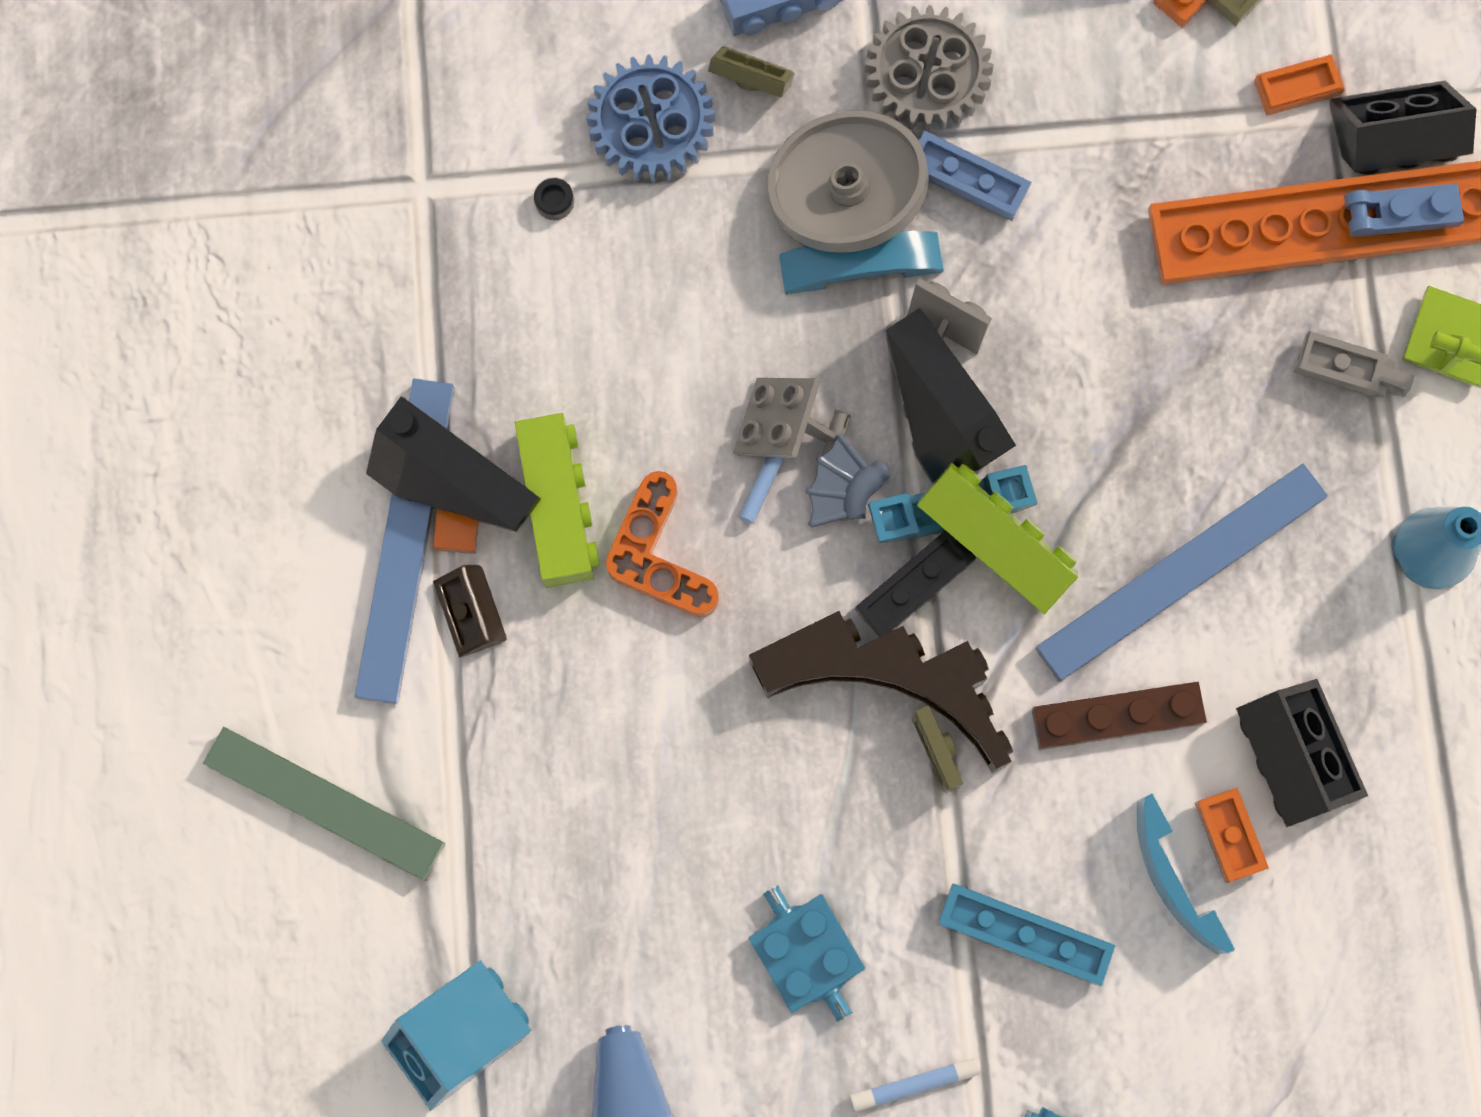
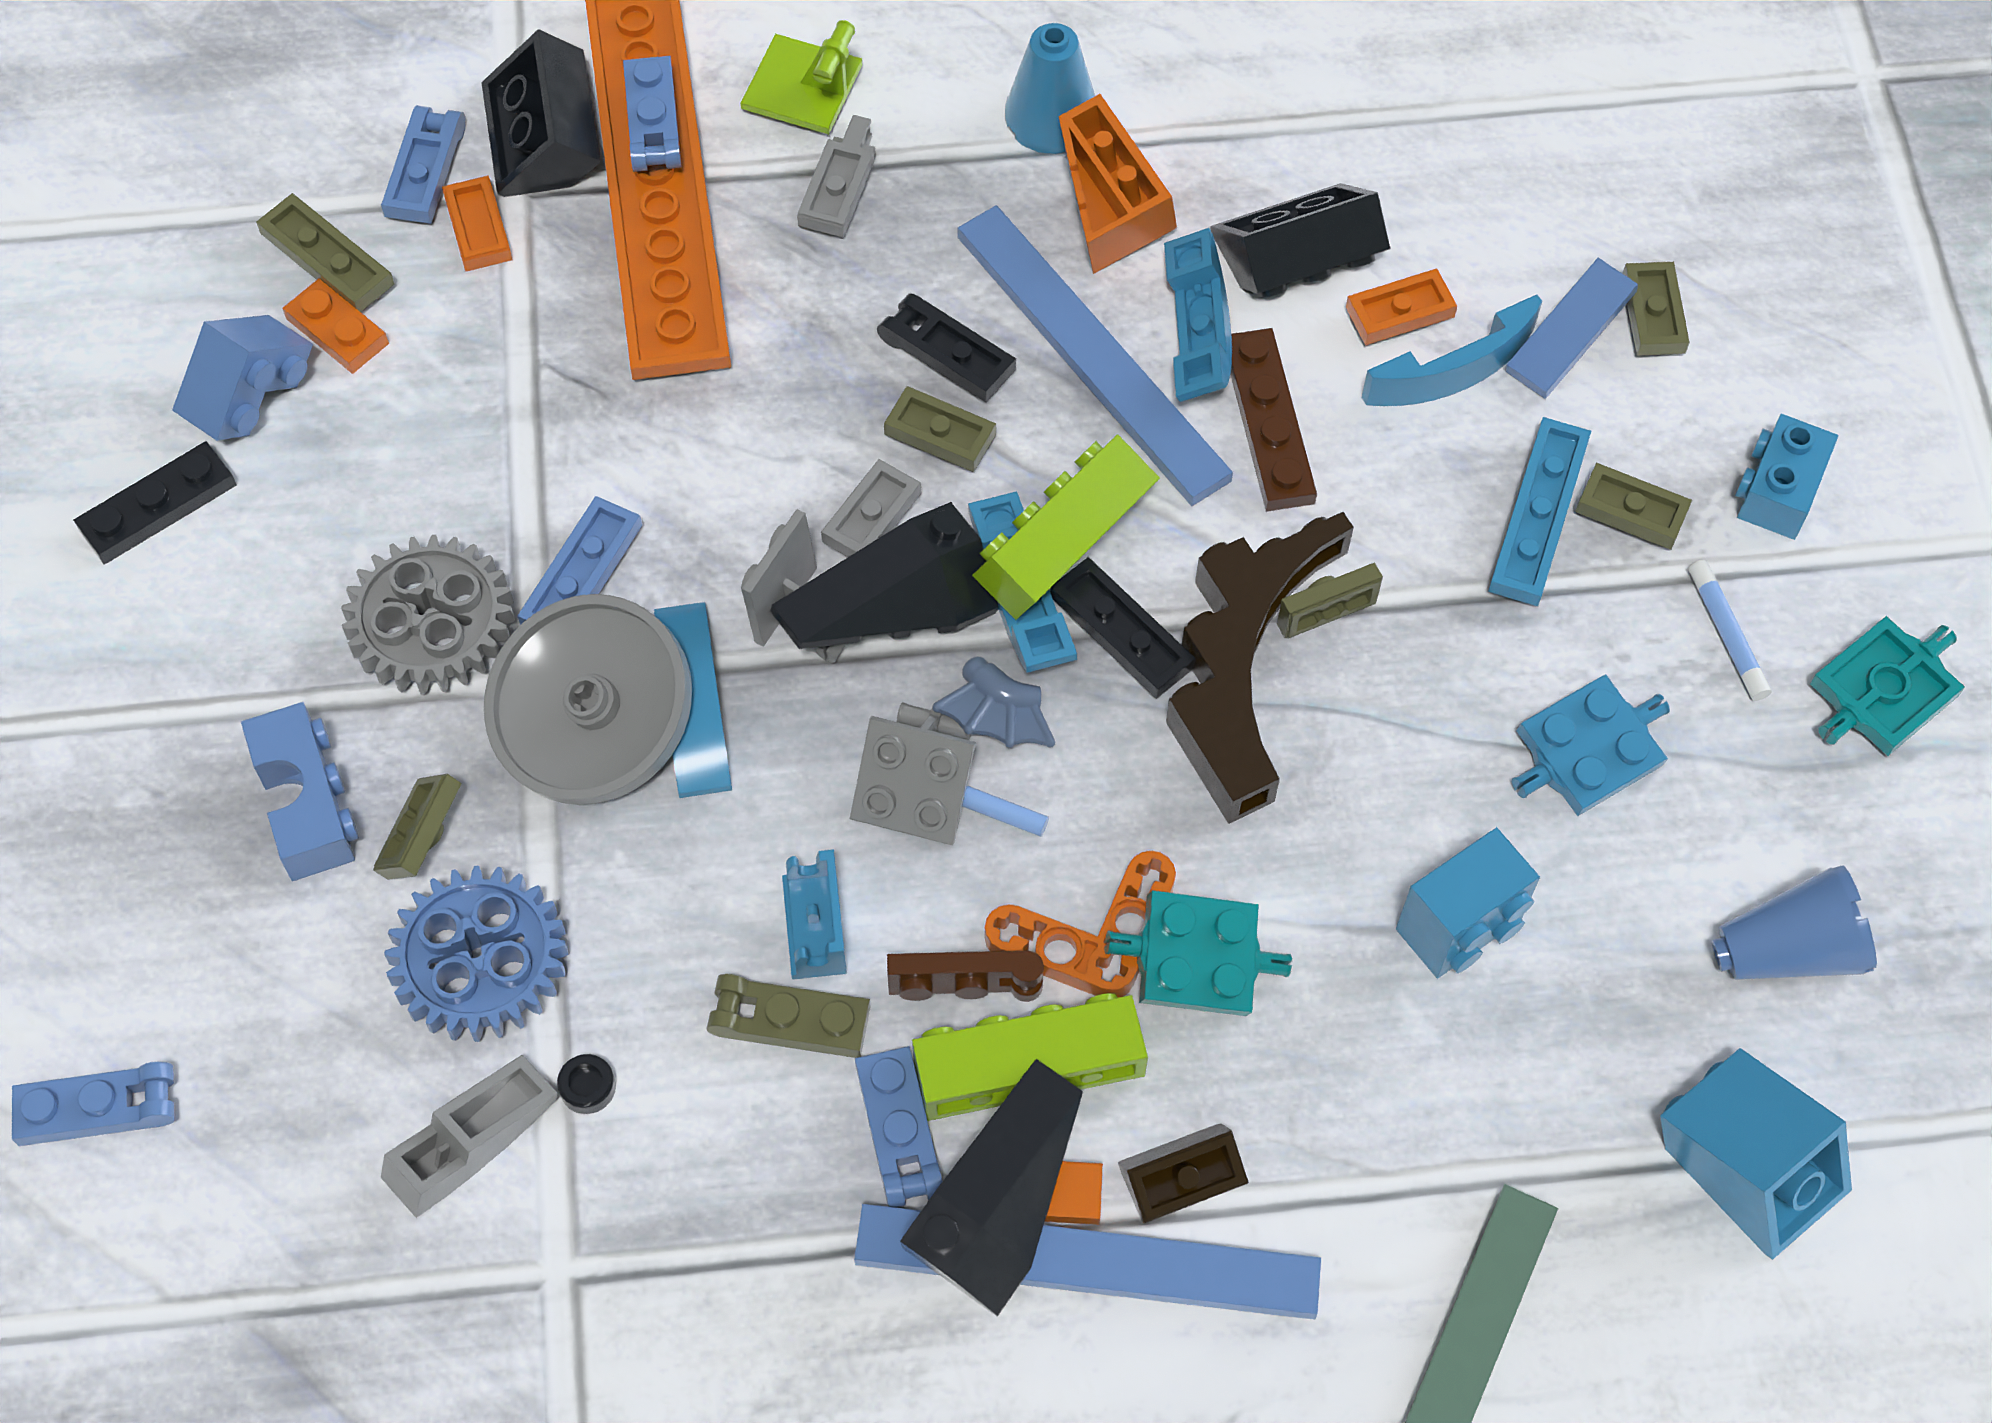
camera: 95 degrees left, 15 degrees down
(506, 407) = (898, 1124): none -> medium blue plate
(516, 120) = (466, 1135): none -> light grey slope
(598, 336) = (790, 1017): none -> olive plate
(620, 458) = (965, 974): none -> reddish brown plate
(630, 626) = (1198, 953): none -> teal plate
(655, 828) = (1468, 904): none -> dark azure brick
(672, 352) = (813, 918): none -> dark azure hinge
(1021, 391) = (871, 509): none -> light grey plate
(1030, 1015) = (1633, 506): none -> olive plate
(1100, 446) = (940, 428): none -> olive plate
(1180, 454) = (948, 347): none -> black plate
(1210, 664) = (1201, 313): none -> dark azure slope
(1210, 982) = (1571, 328): none -> medium blue tile
(1235, 1062) = (1656, 309): none -> olive plate
(1346, 588) = (1114, 185): none -> orange wedge
(1354, 38) = (422, 164): none -> medium blue plate

